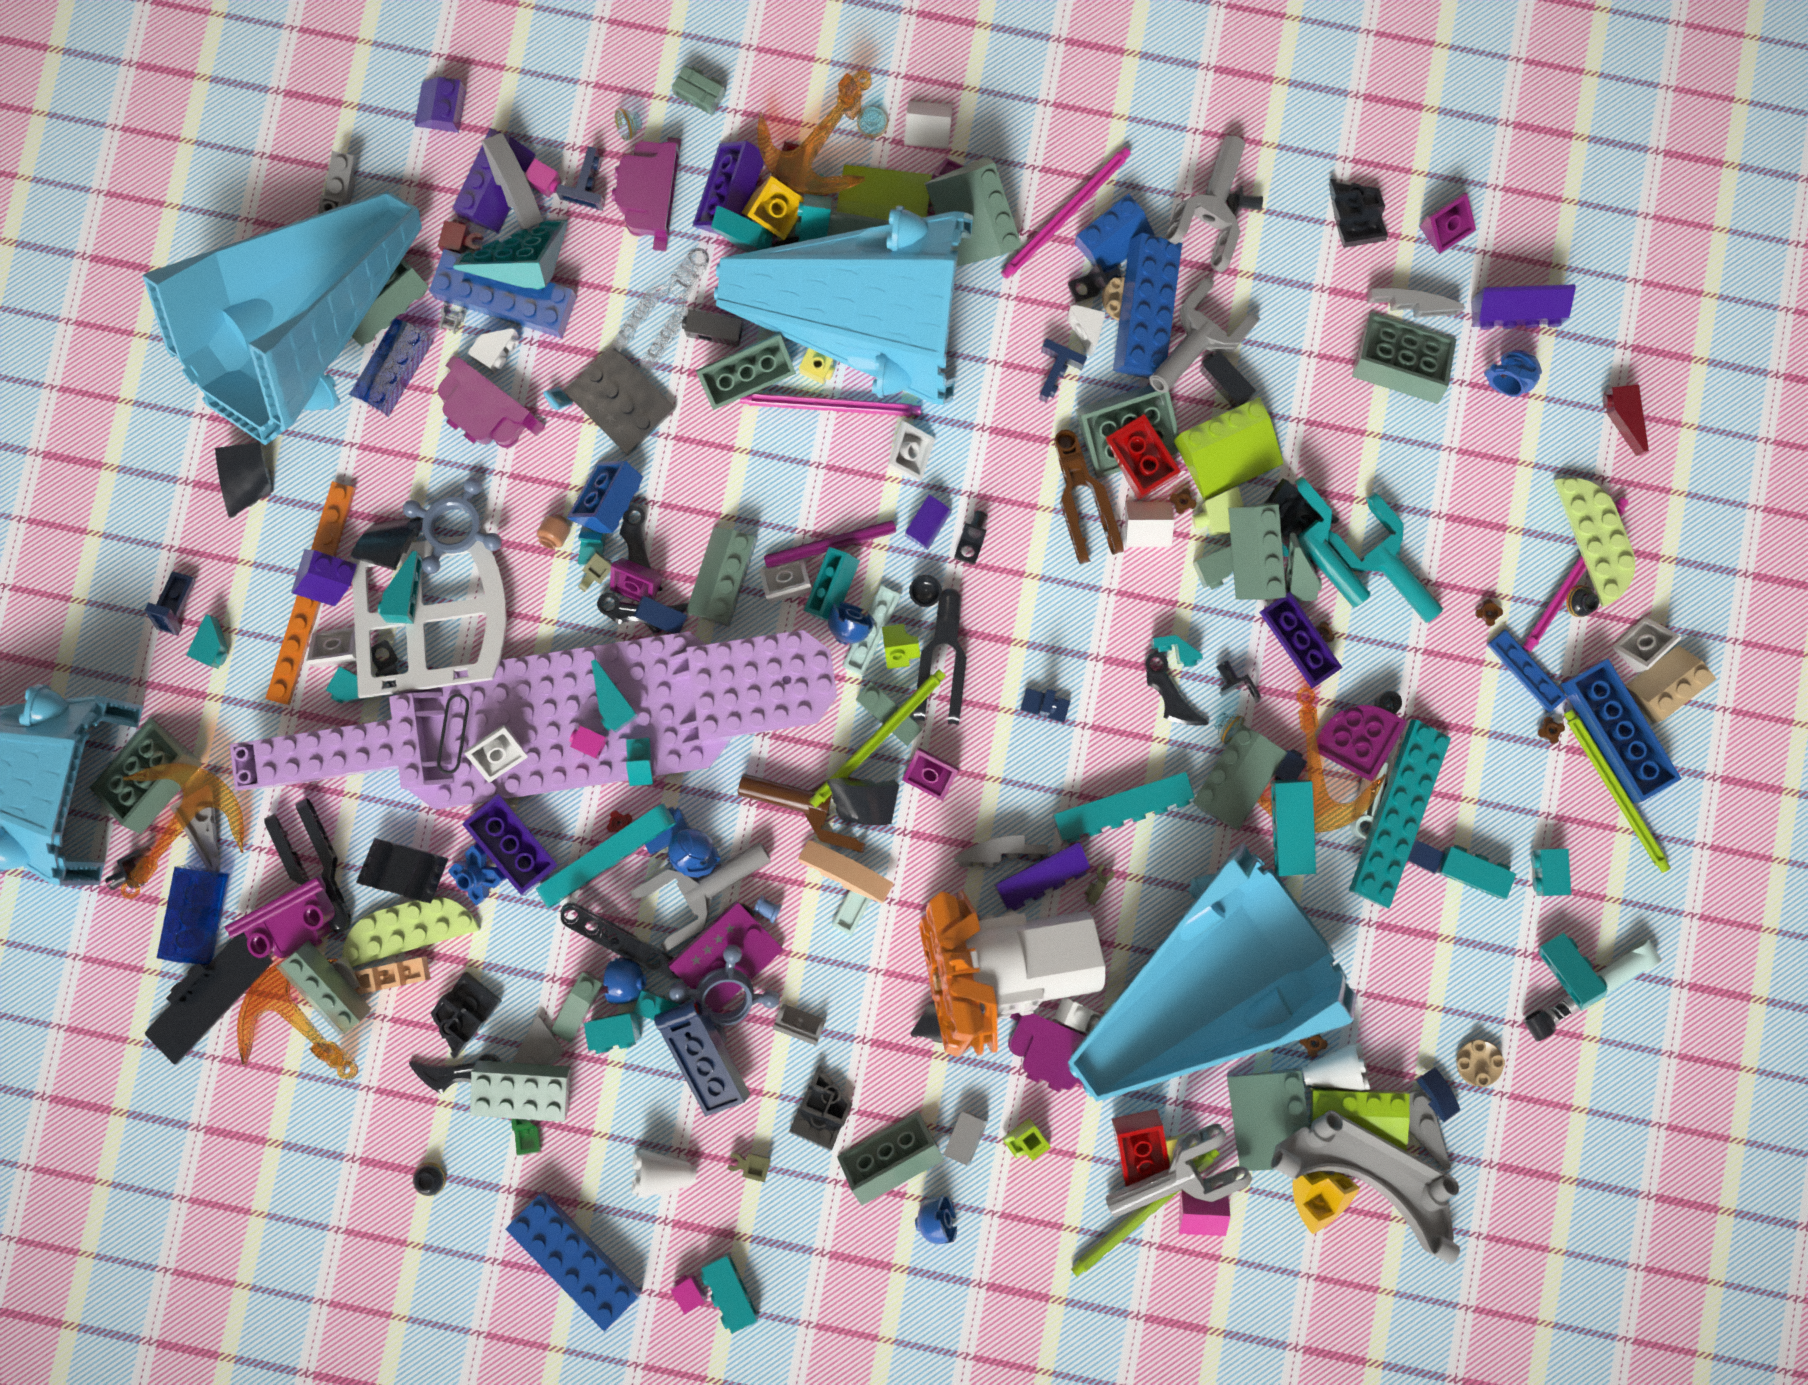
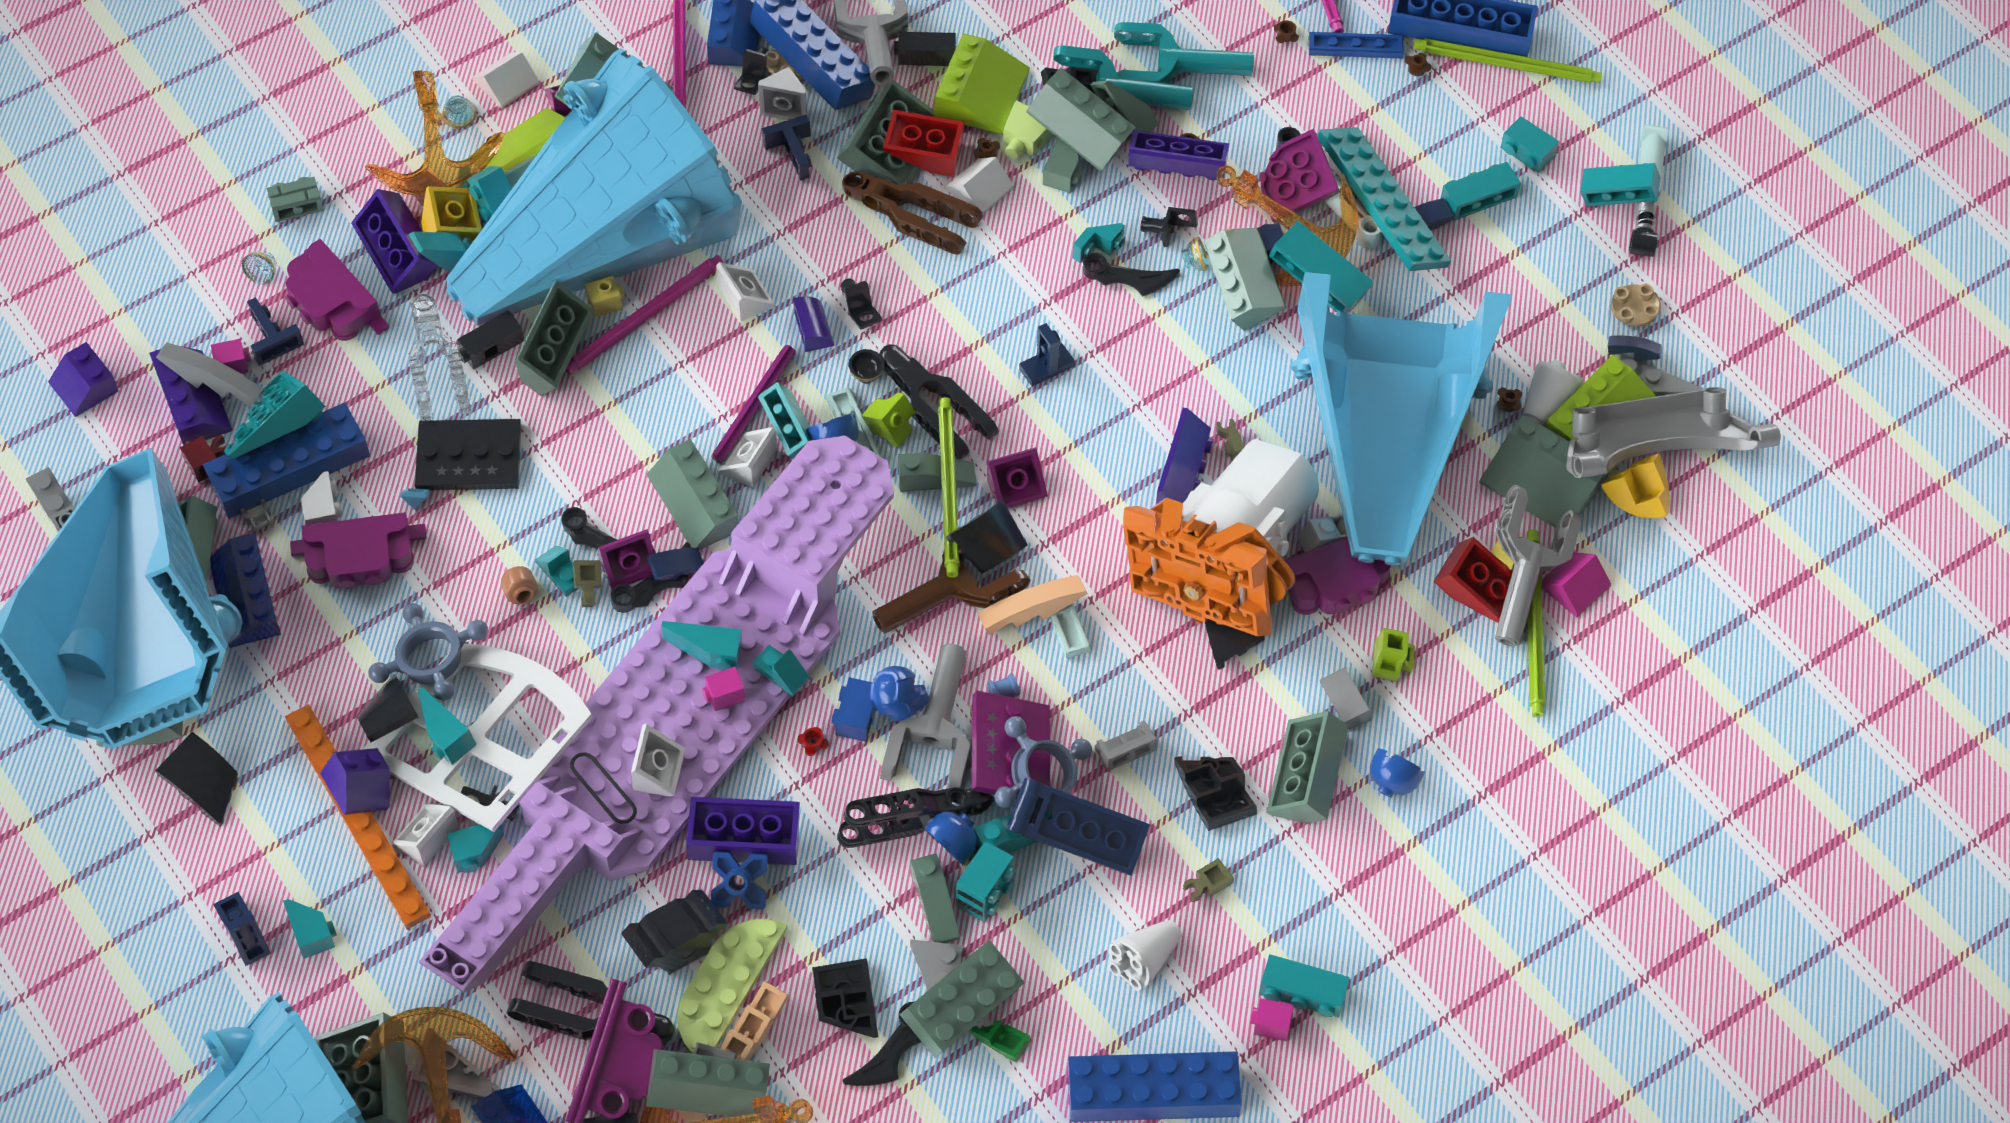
camera: 50 degrees left, 25 degrees down
(605, 855) = (831, 763): teal beam -> none
(606, 496) = (535, 519): blue slope -> none
(990, 851) = (1128, 484): light grey slope -> none
(1123, 806) = (1185, 373): teal brick -> none

